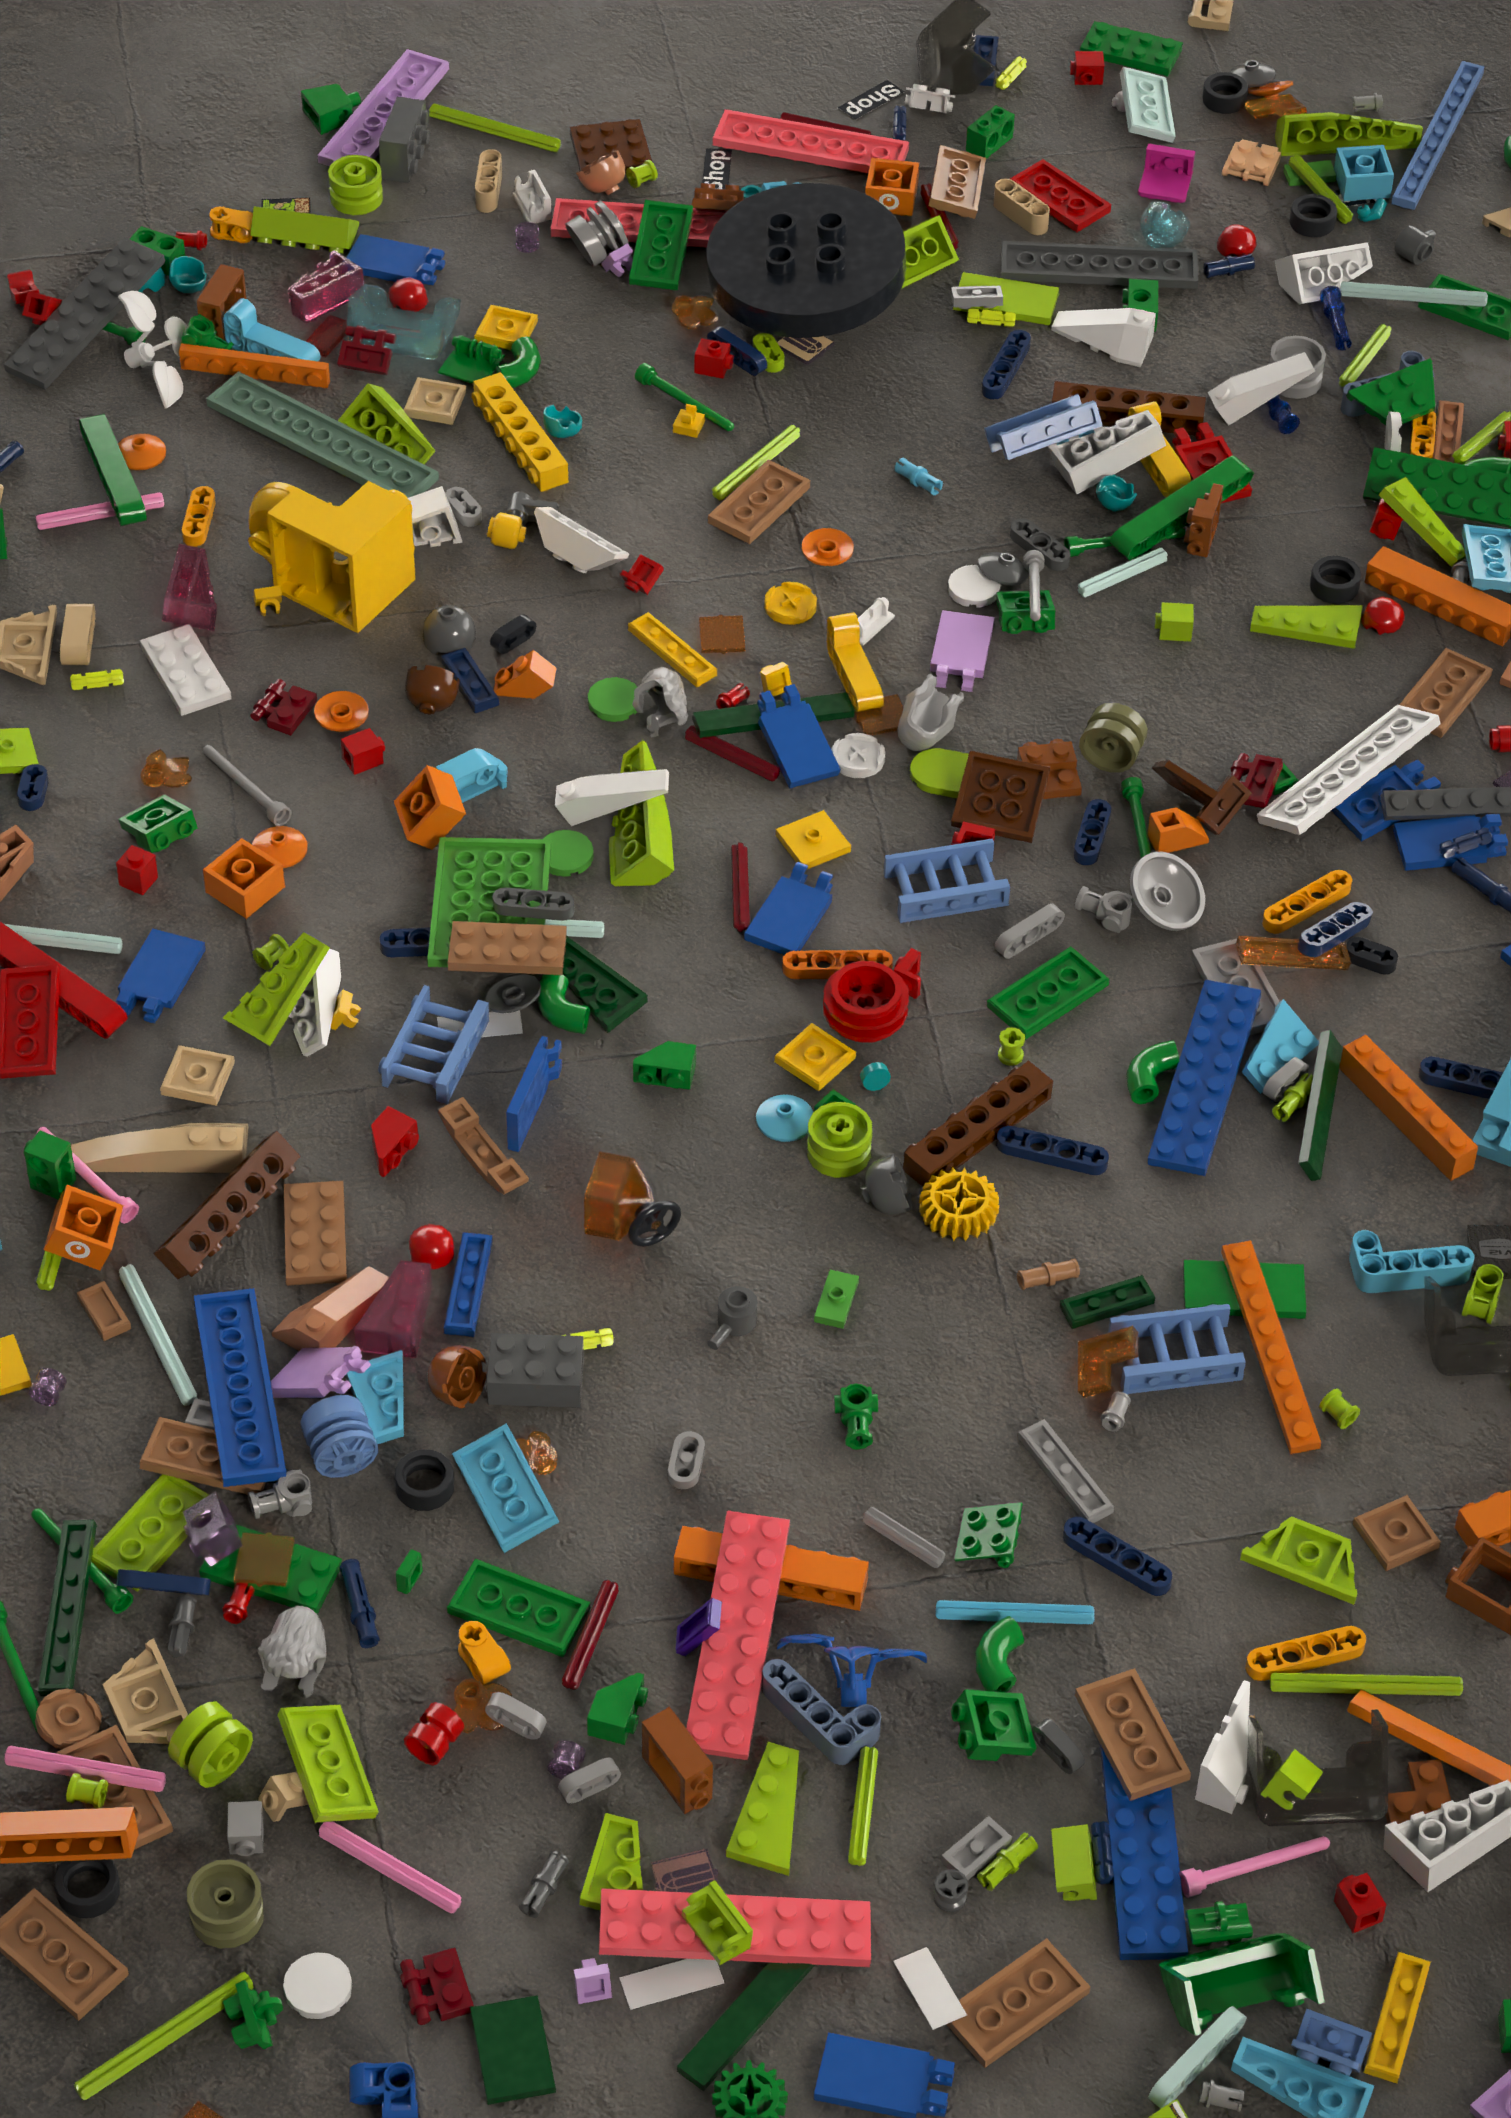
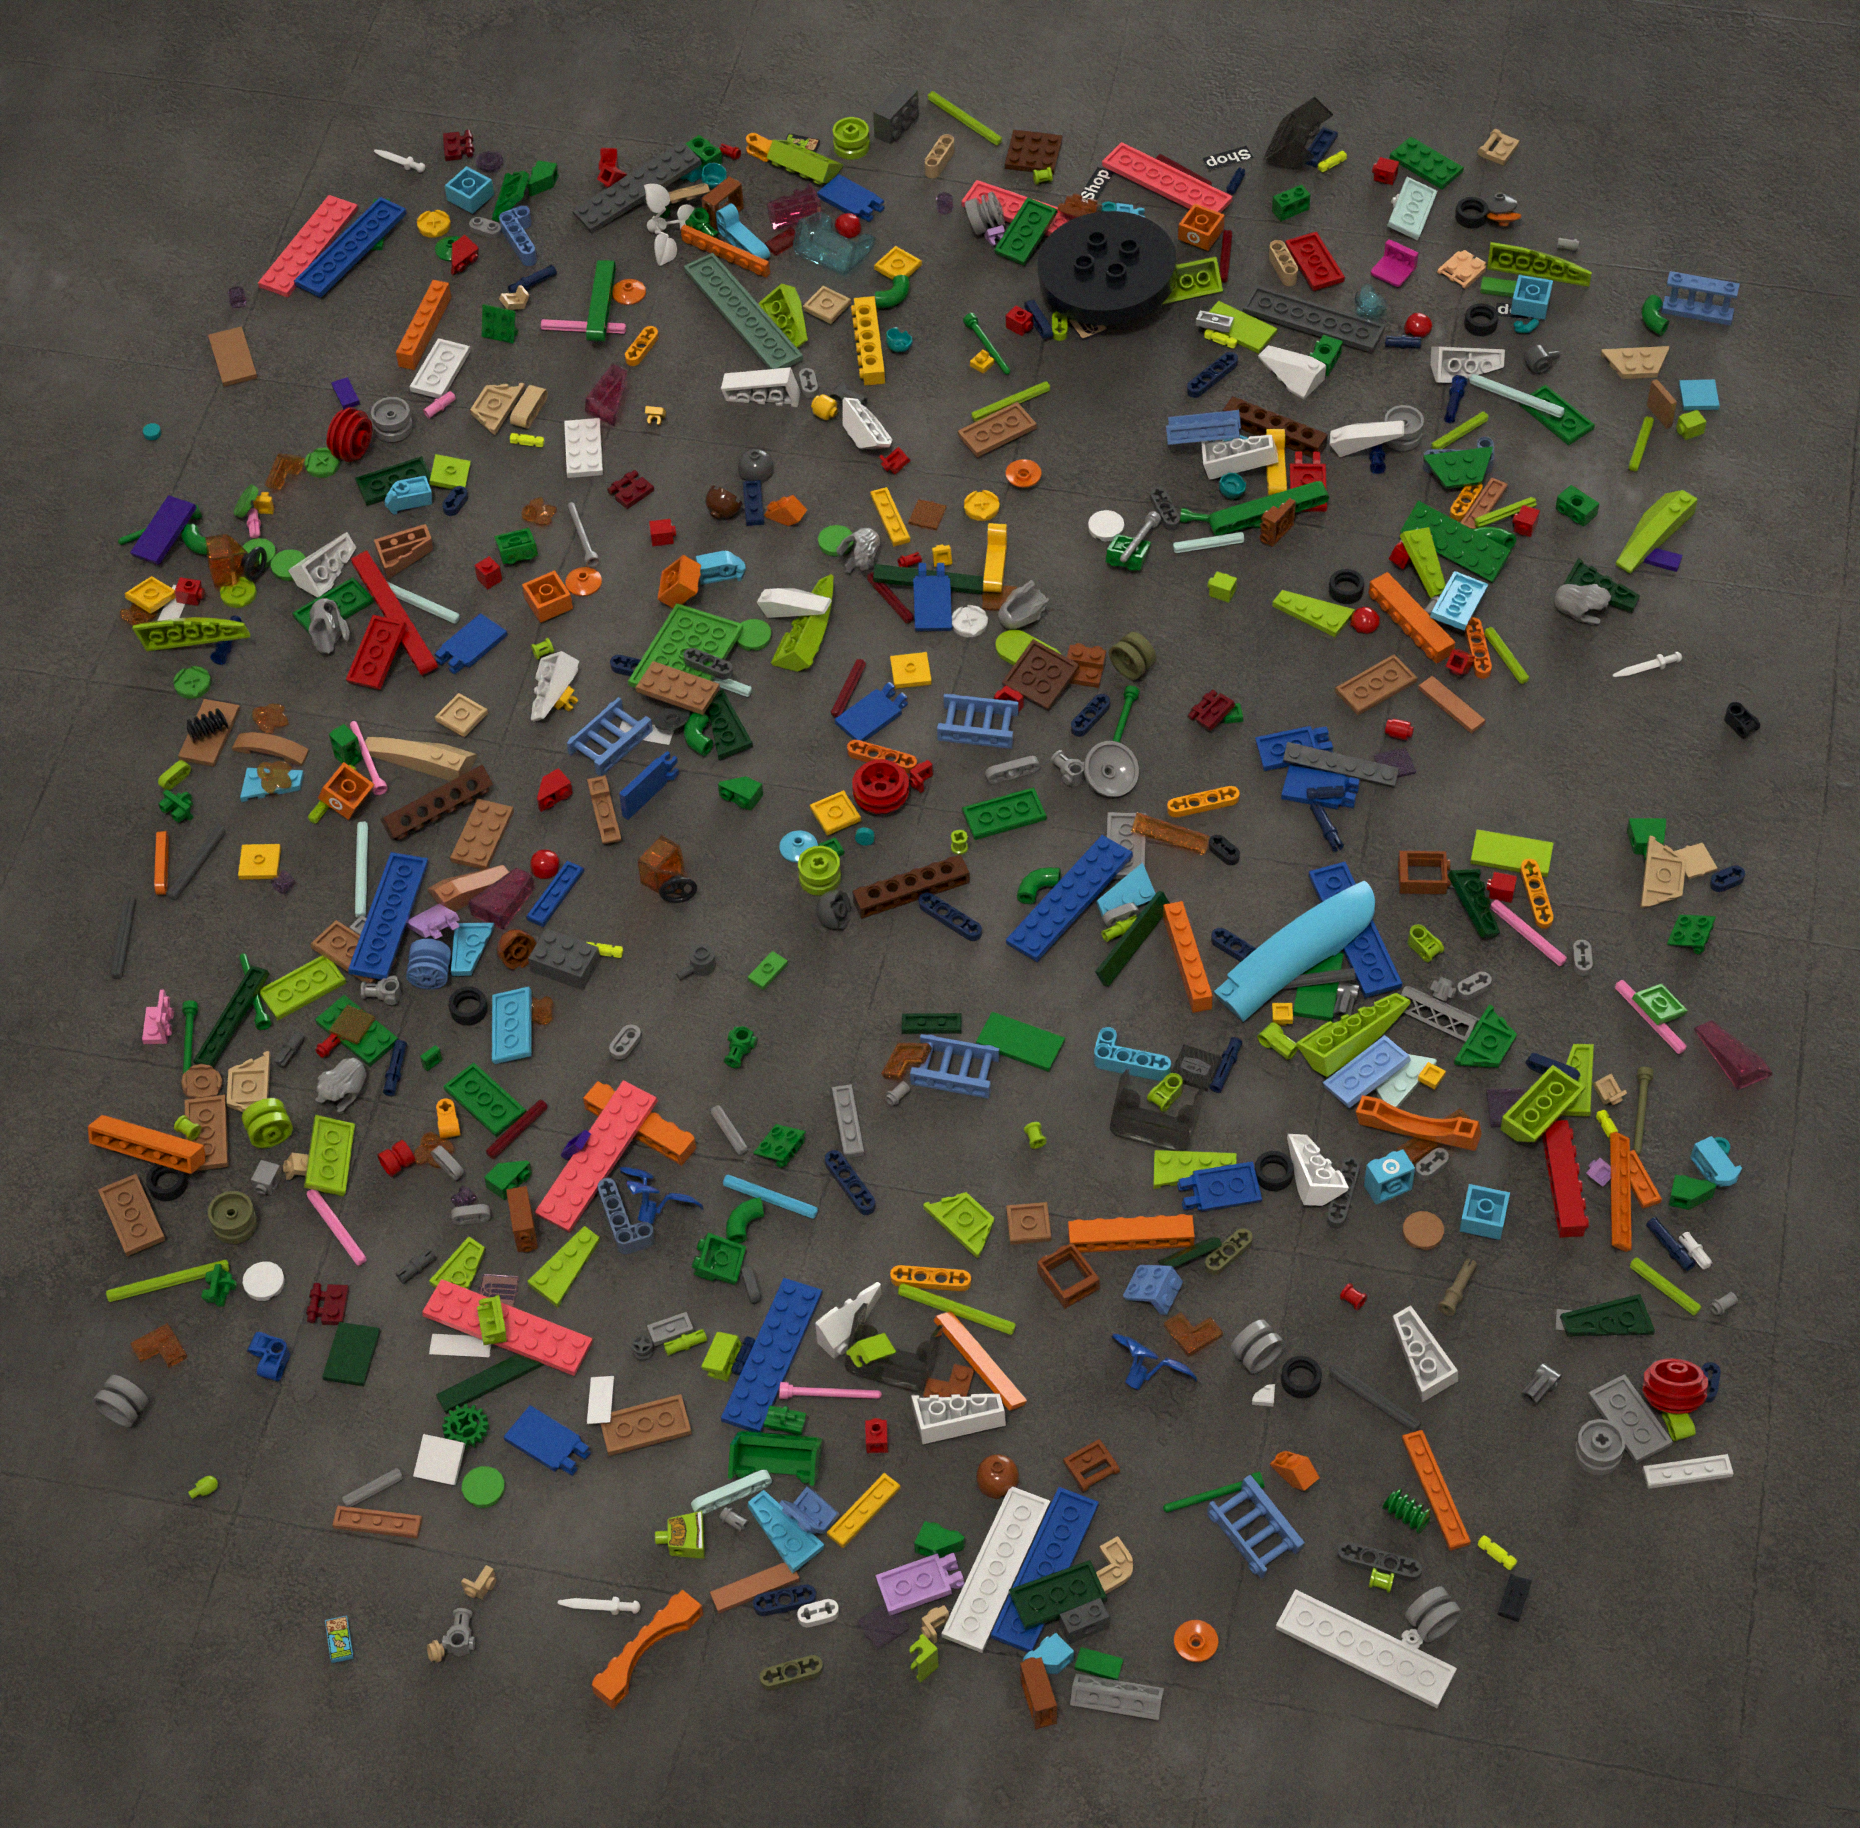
camera: 25 degrees right, 5 degrees up
(86, 1768) = (194, 1114): bright pink axle -> none
(104, 1310) = (338, 845): medium nougat tile -> none
(163, 1582) = (290, 1020): dark blue beam -> none
(169, 300) = (688, 192): none -> tan wing
(211, 1529) = (330, 997): clear purple brick -> none
(273, 999) = (531, 674): lime wing -> none
(303, 532) = (708, 400): yellow piece -> none
(328, 106) = (864, 77): green torso -> none
(341, 711) = (661, 502): orange dish -> none
(366, 357) = (800, 264): dark red plate -> none
(410, 77) = (917, 74): lavender plate -> none
(471, 360) = (864, 282): green hinge -> none
(513, 634) = (794, 479): black beam -> none
(532, 198) = (961, 176): white hinge -> none
(592, 1981) = (412, 1330): lavender tile -> none
(603, 174) = (1015, 170): nougat cylinder -> none
(694, 311) = (1026, 284): clear orange plate -> none
(863, 1806) = (619, 1281): lime axle -> none
(874, 619) = (1024, 533): white hinge -> none
(918, 476) = (1110, 439): medium azure pin -> none
(939, 99) = (1271, 168): white hinge -> none
(941, 1199) = (869, 927): yellow gear -> none
(957, 182) = (1248, 234): medium nougat plate -> none
(961, 647) = (1074, 566): lavender tile -> none
(1003, 568) = (1129, 518): dark grey dish -> none
(1048, 1274) = (903, 994): medium nougat pin -> none
(1132, 1734) = (793, 1291): medium nougat plate -> none
(1175, 830) = (1142, 730): orange slope -> none
(1219, 804) = (1181, 719): reddish brown piece -> none
(1271, 1347) = (1014, 1083): orange plate -> none
(1280, 104) = (1505, 232): clear orange plate -> none
(1319, 187) = (1497, 301): lime axle -> none
(1348, 769) = (1278, 720): white plate -> none
(1355, 918) = (1226, 820): dark blue beam -> none
(1392, 435) = (1439, 493): white tile -> none
(1437, 135) = (1604, 281): medium blue plate -> none

